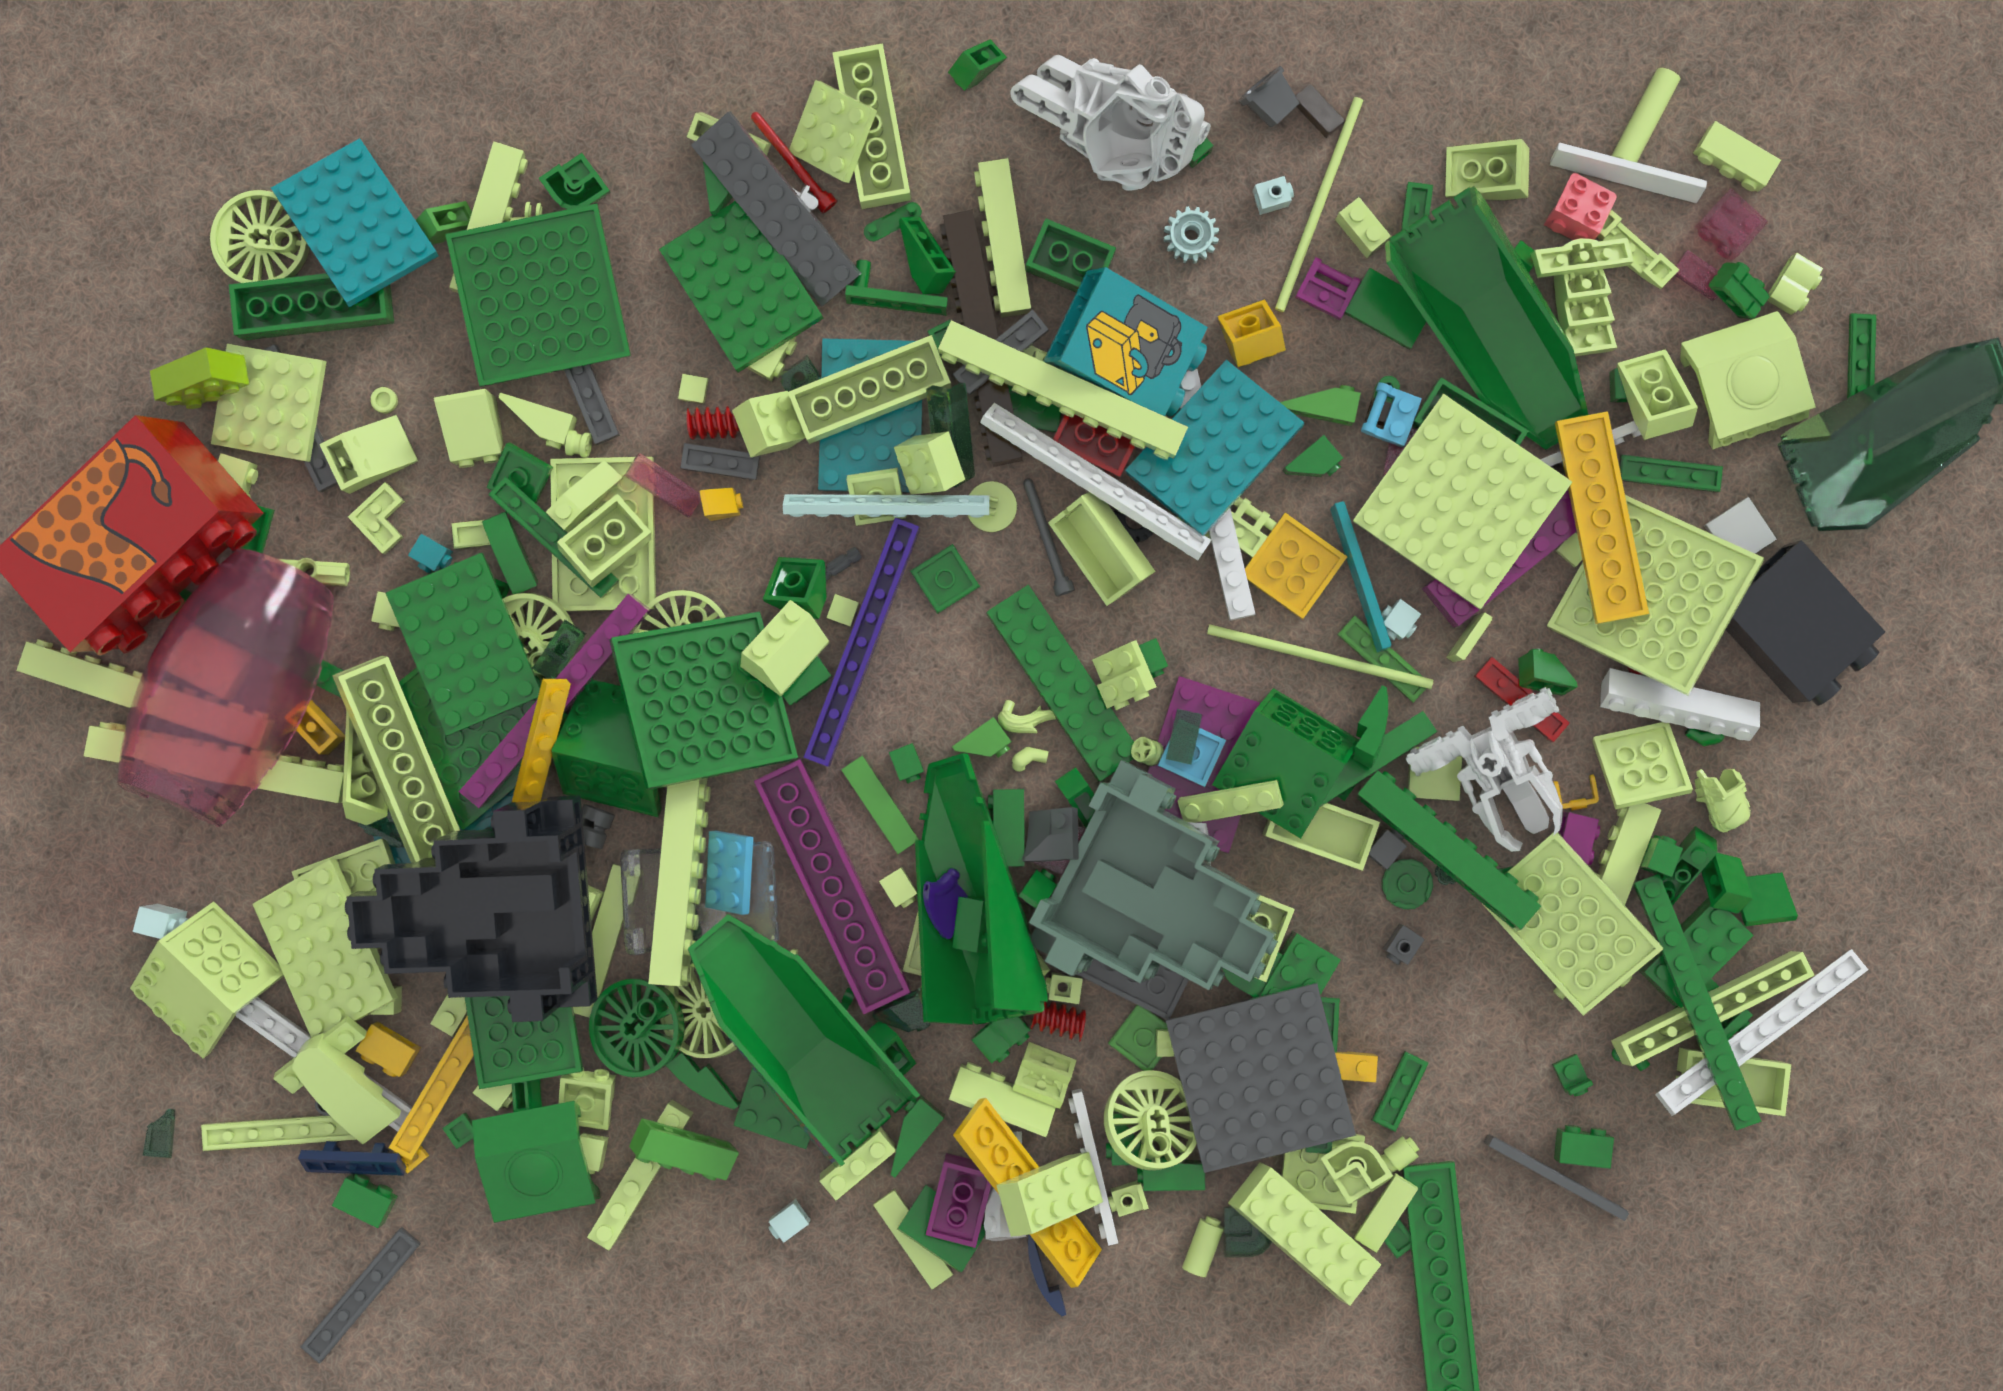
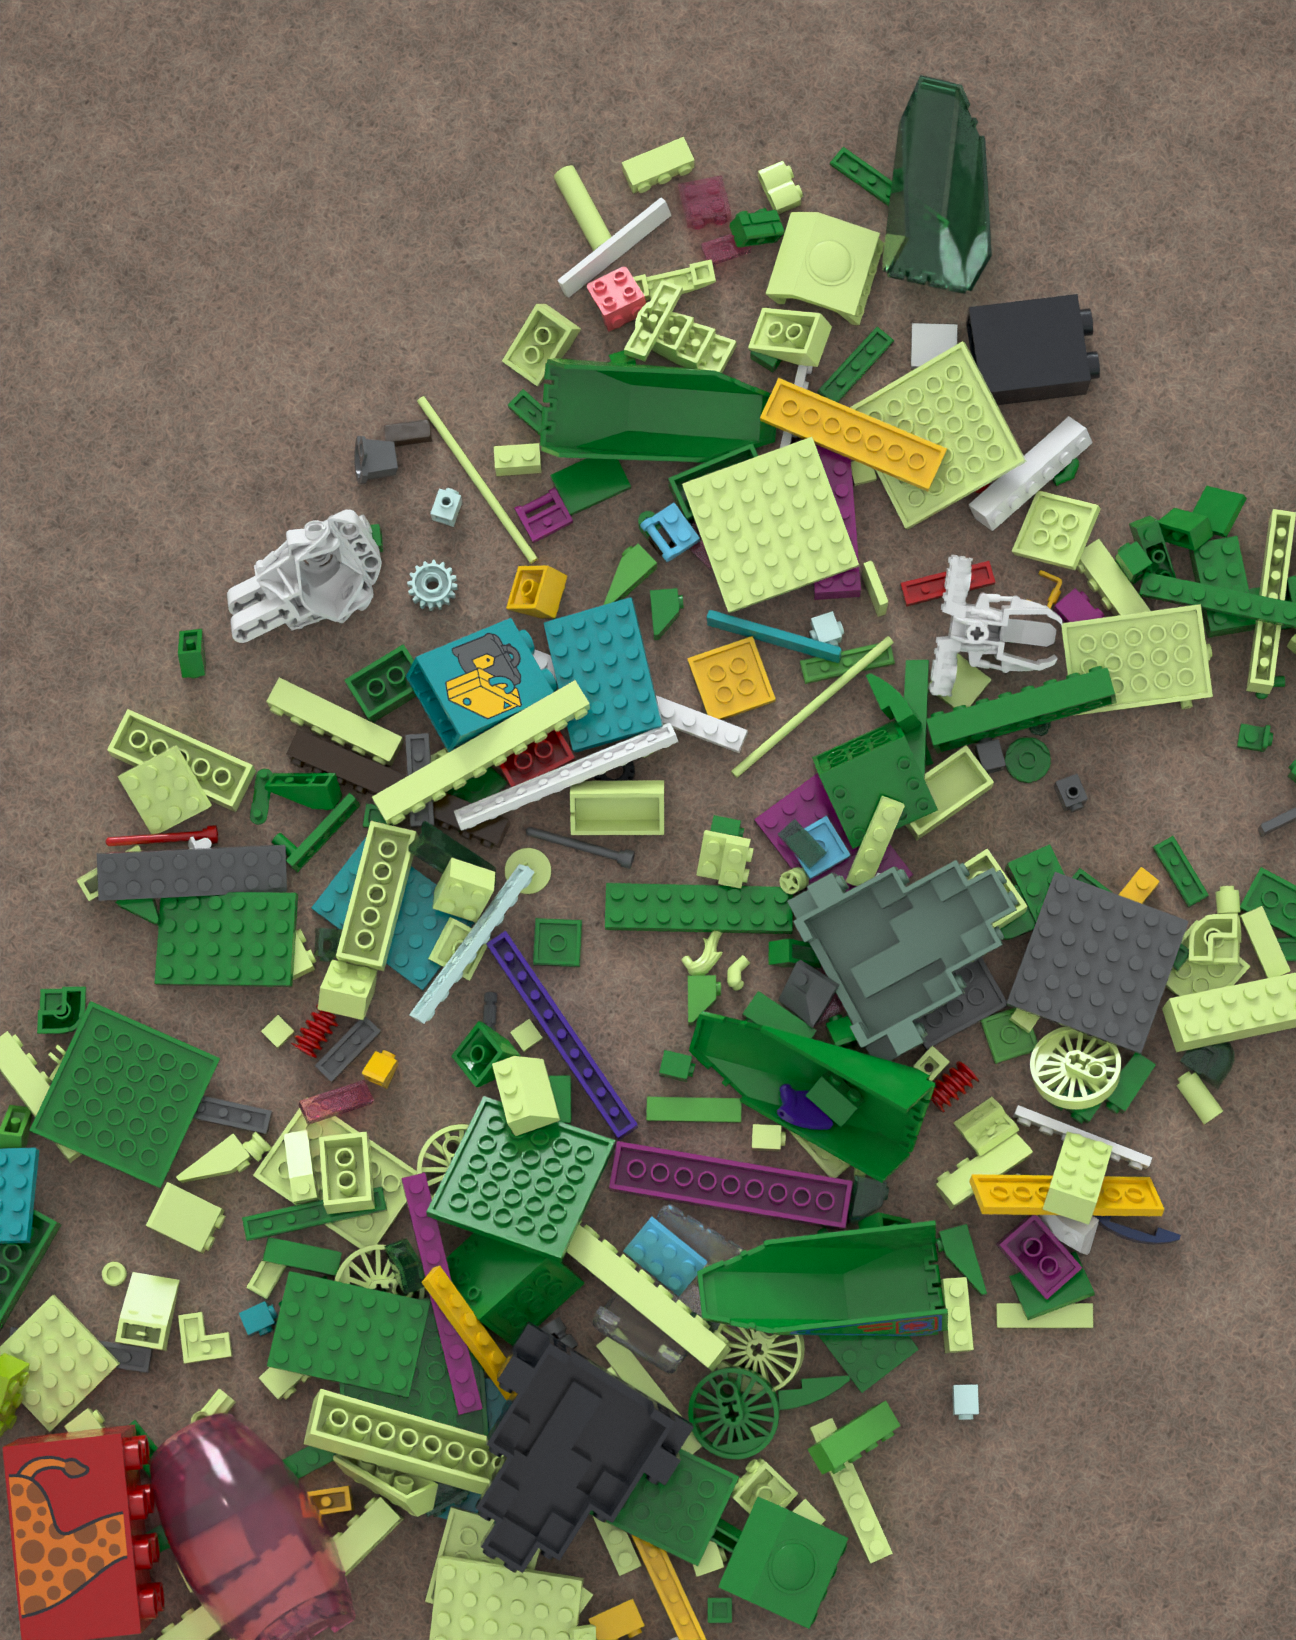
camera: 55 degrees left, 10 degrees down
(523, 470) = (244, 1202): green tile -> none
(999, 1036) = (933, 1140): green brick -> none
(1131, 1190) = (1131, 1121): yellowish green brick -> none
(1249, 536) = (687, 695): yellowish green plate -> none
(1544, 670) = (934, 553): green slope -> none
(1723, 799) = (1121, 489): yellowish green helmet -> none

